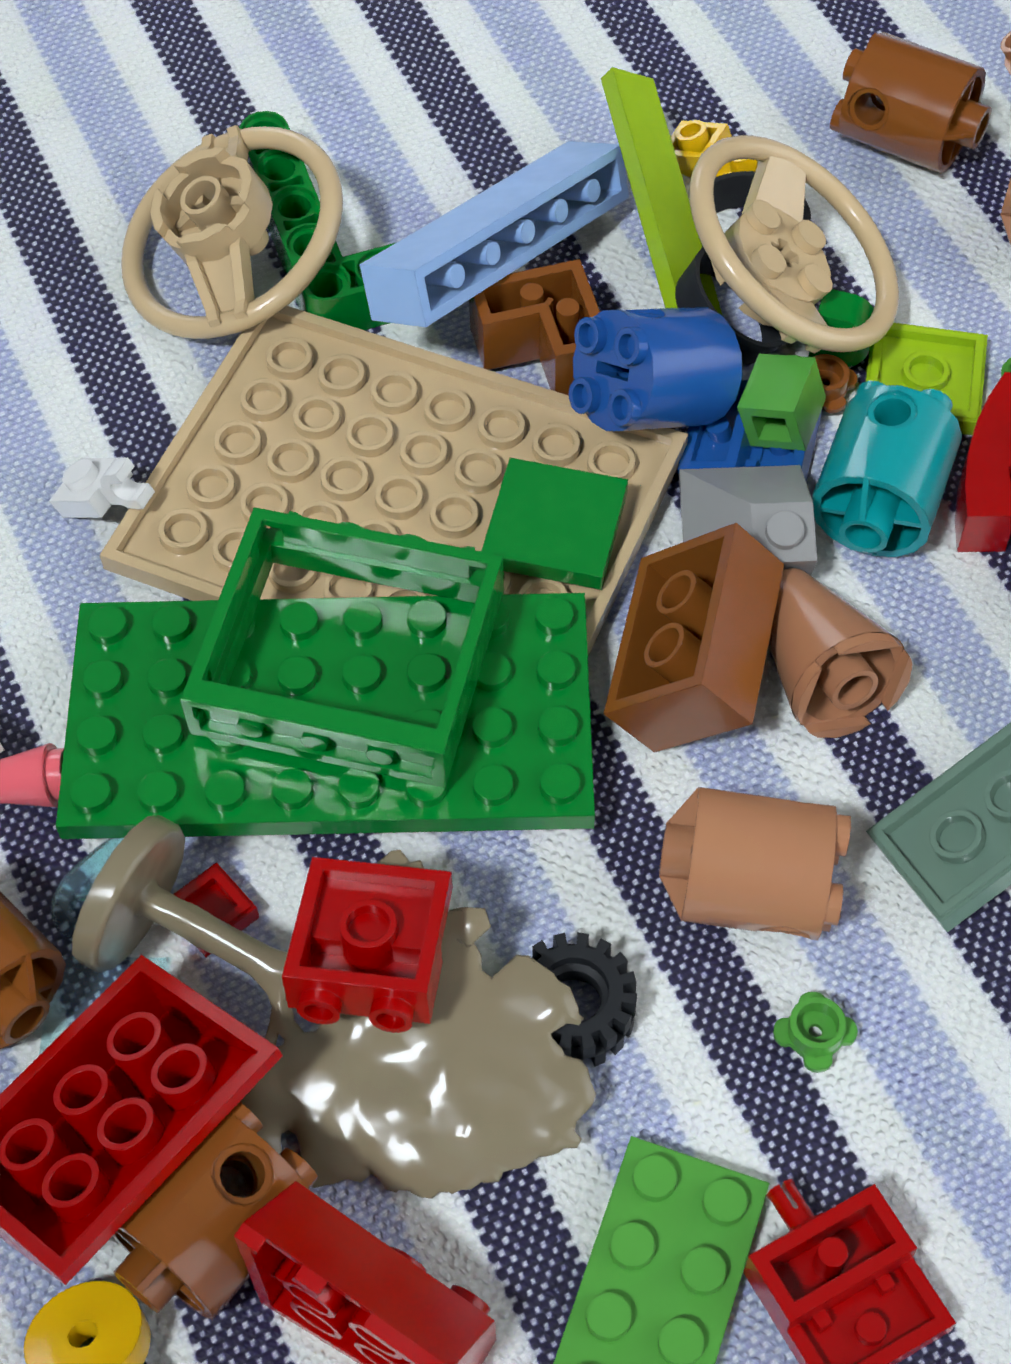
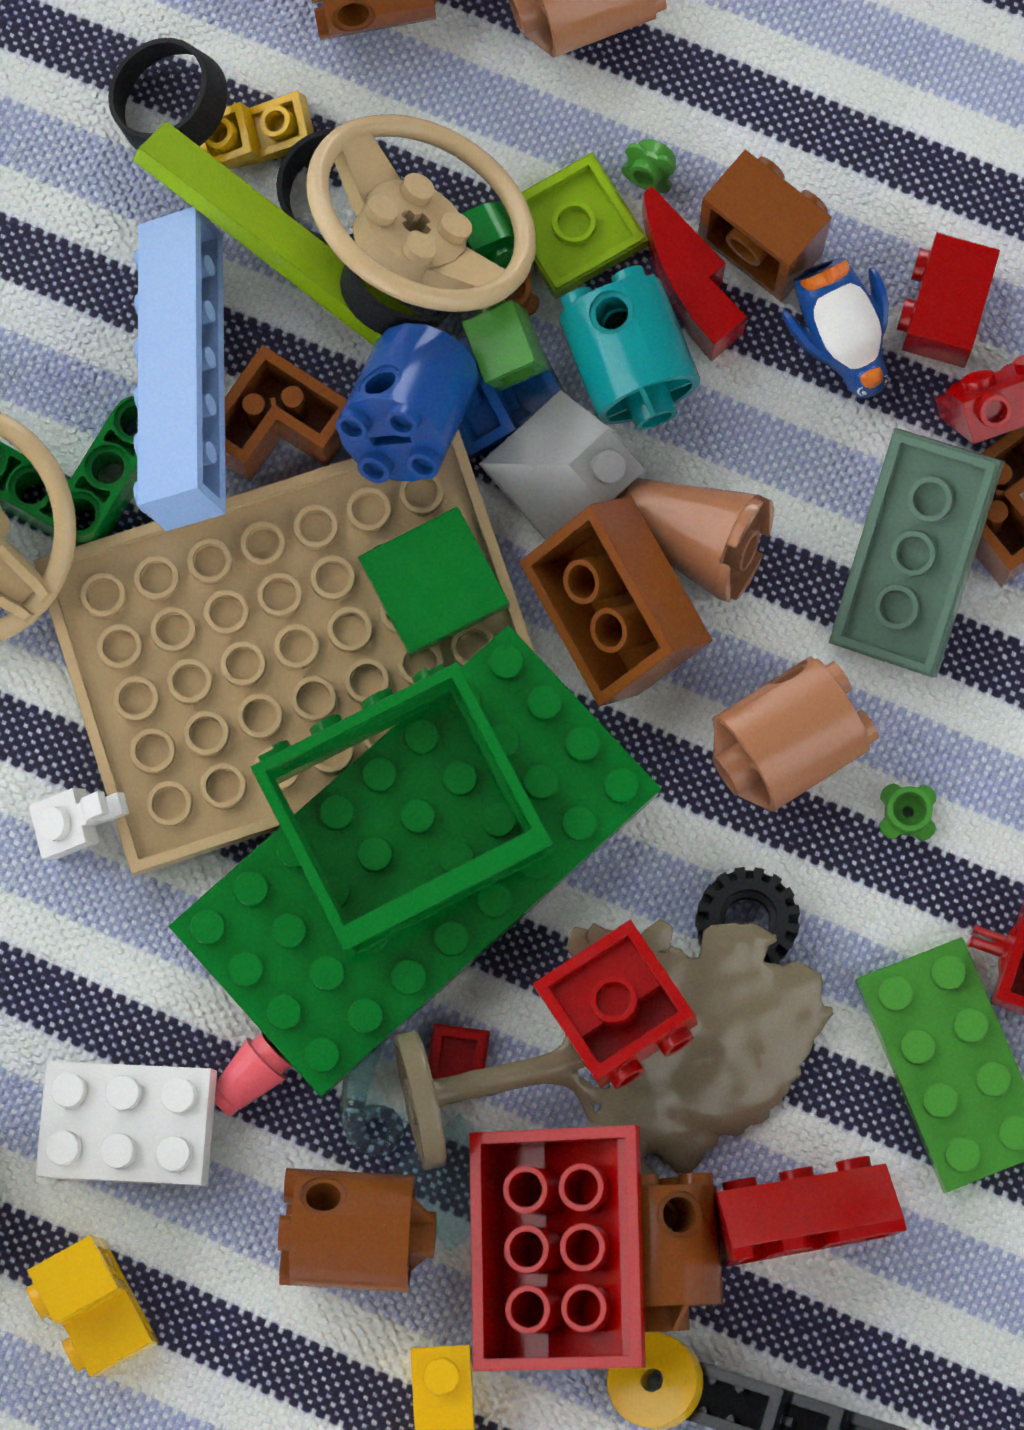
camera: 40 degrees left, 20 degrees up
(693, 103) = (206, 112): none -> black tyre

